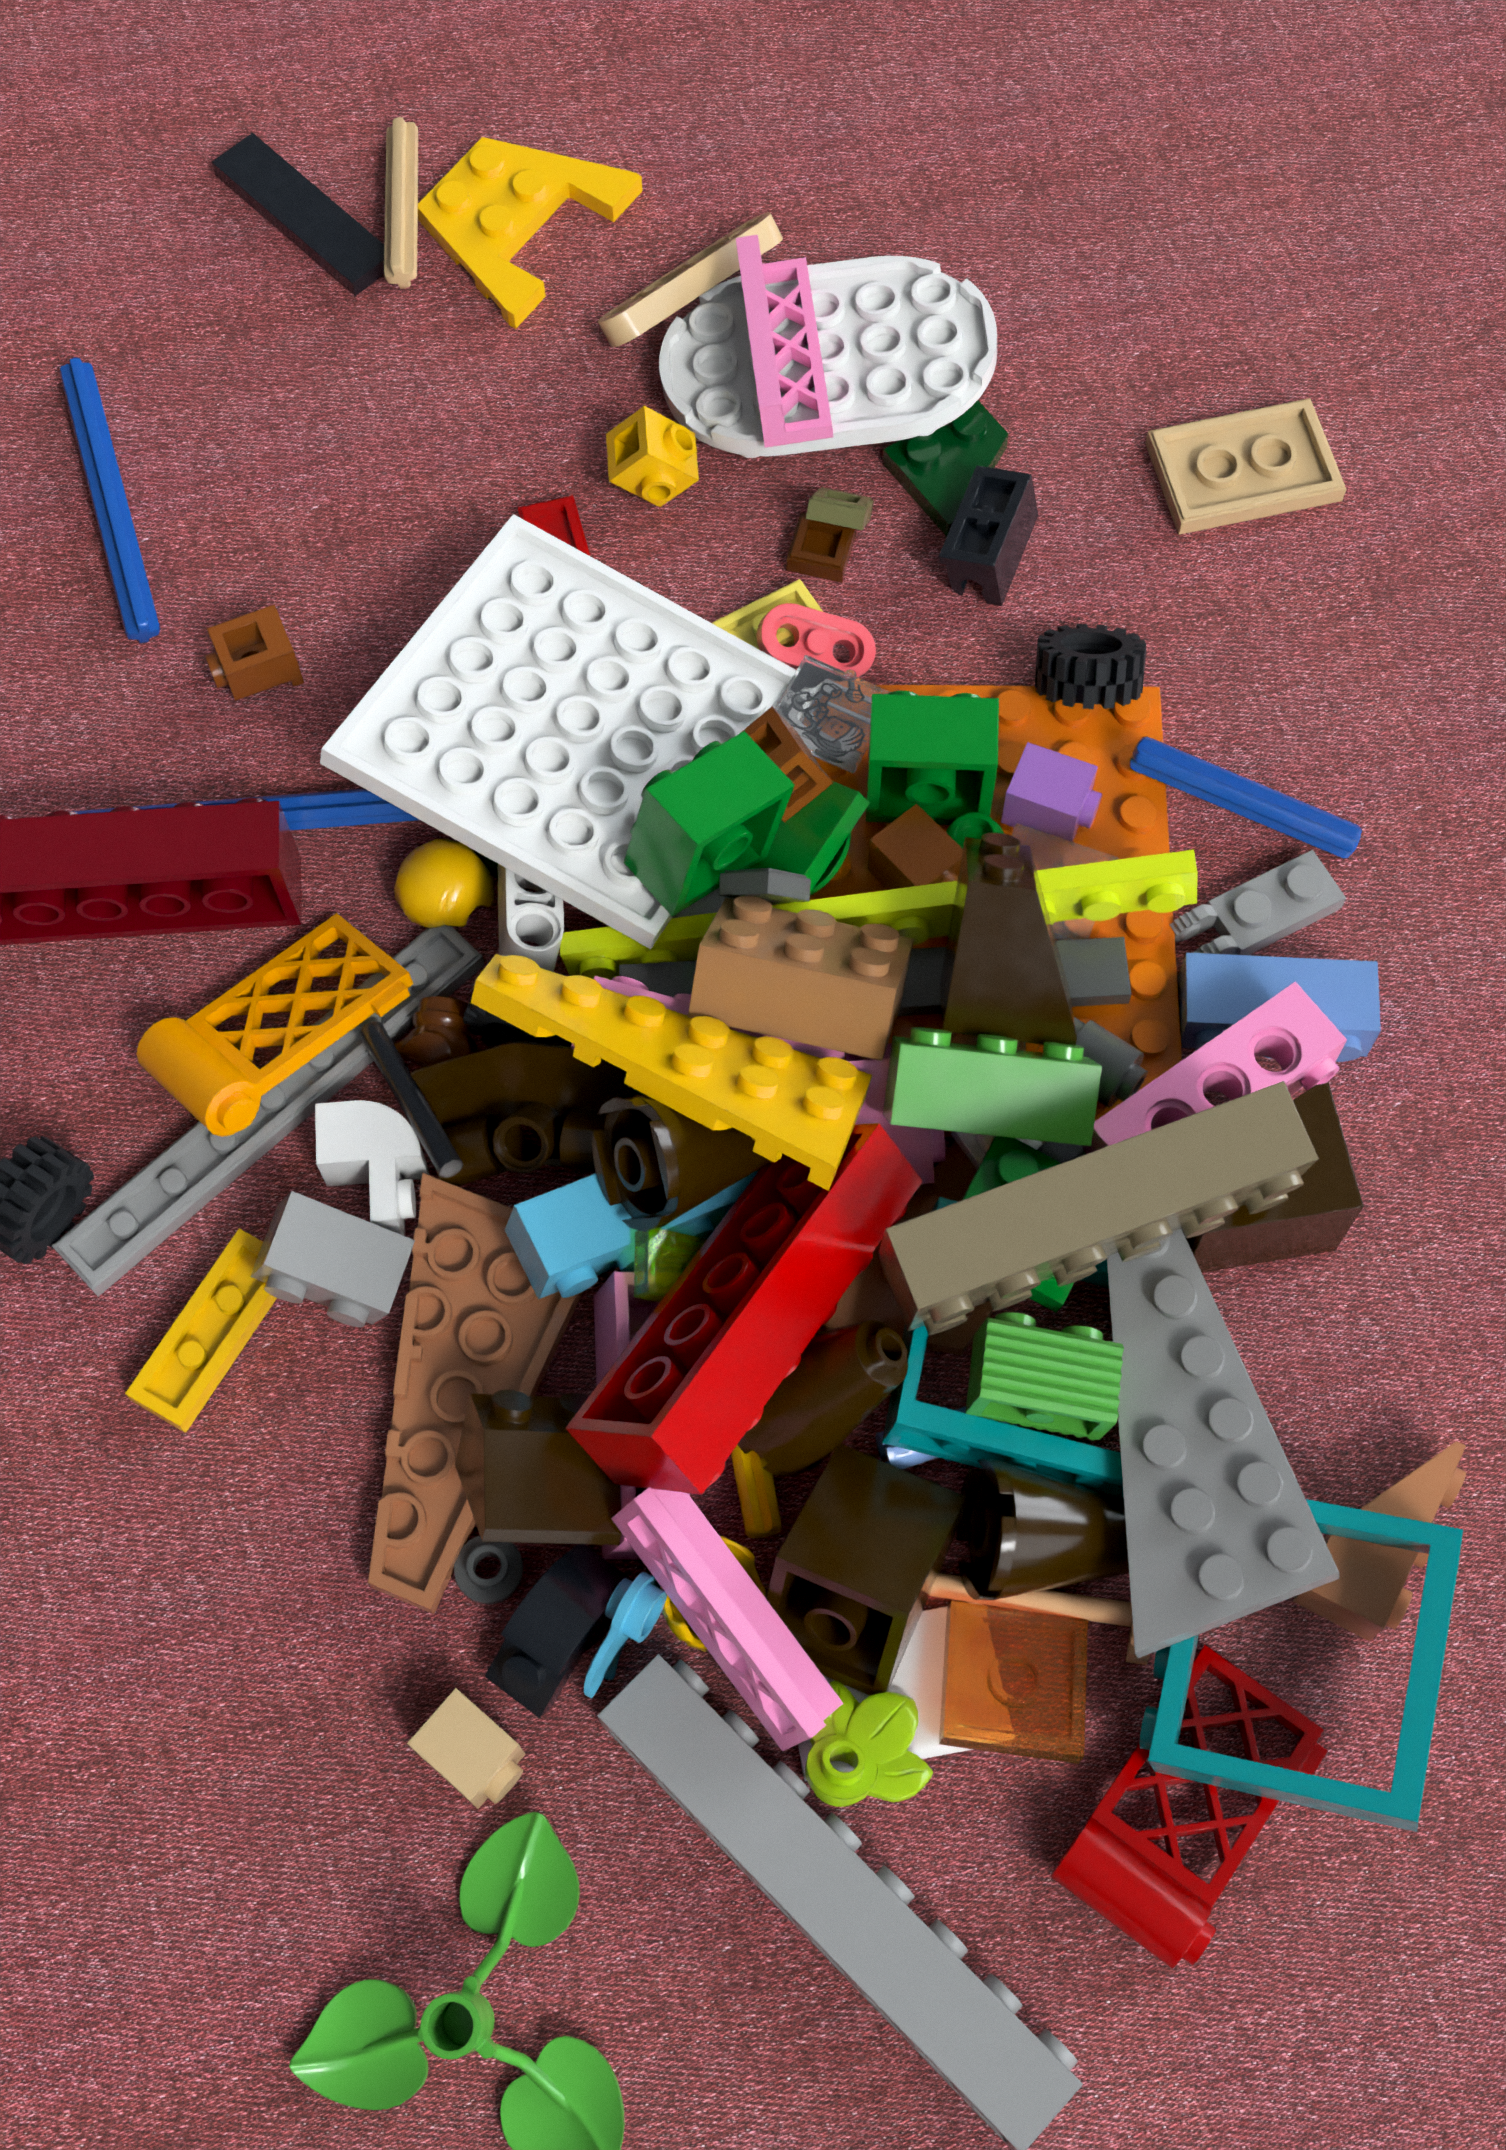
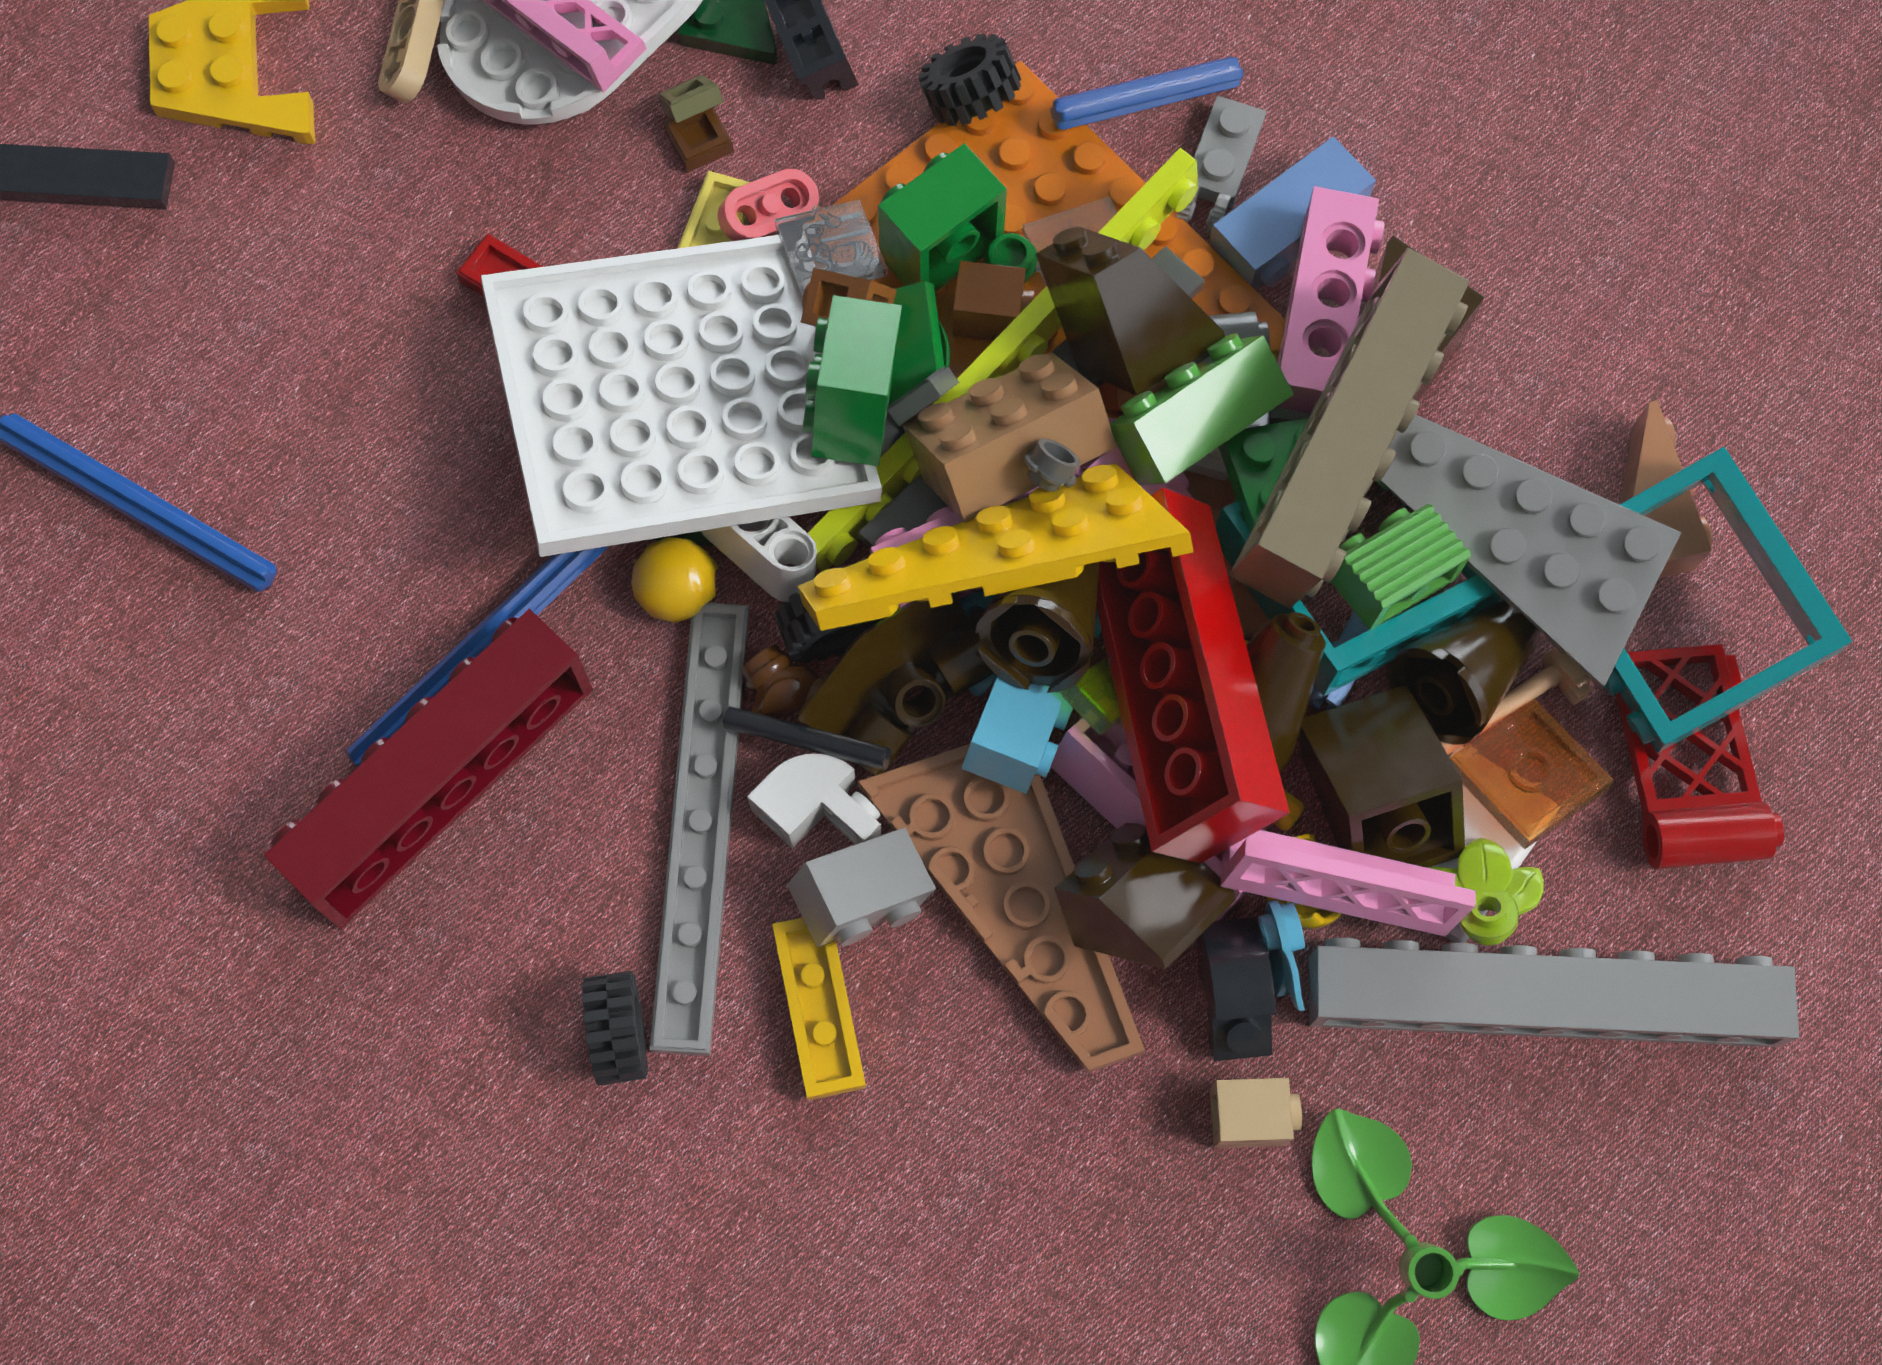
camera: 45 degrees left, 5 degrees up
(219, 1080) = (656, 838): light orange piece -> none
(252, 654) = (367, 512): dark orange brick -> none
(401, 203) = (138, 110): tan axle -> none
(494, 1589) = (1151, 1012): dark grey plate -> none
(652, 456) = (526, 160): yellow brick -> none
(797, 1023) = (1051, 465): none -> dark grey plate
(1051, 793) = (1035, 185): medium lavender brick -> none

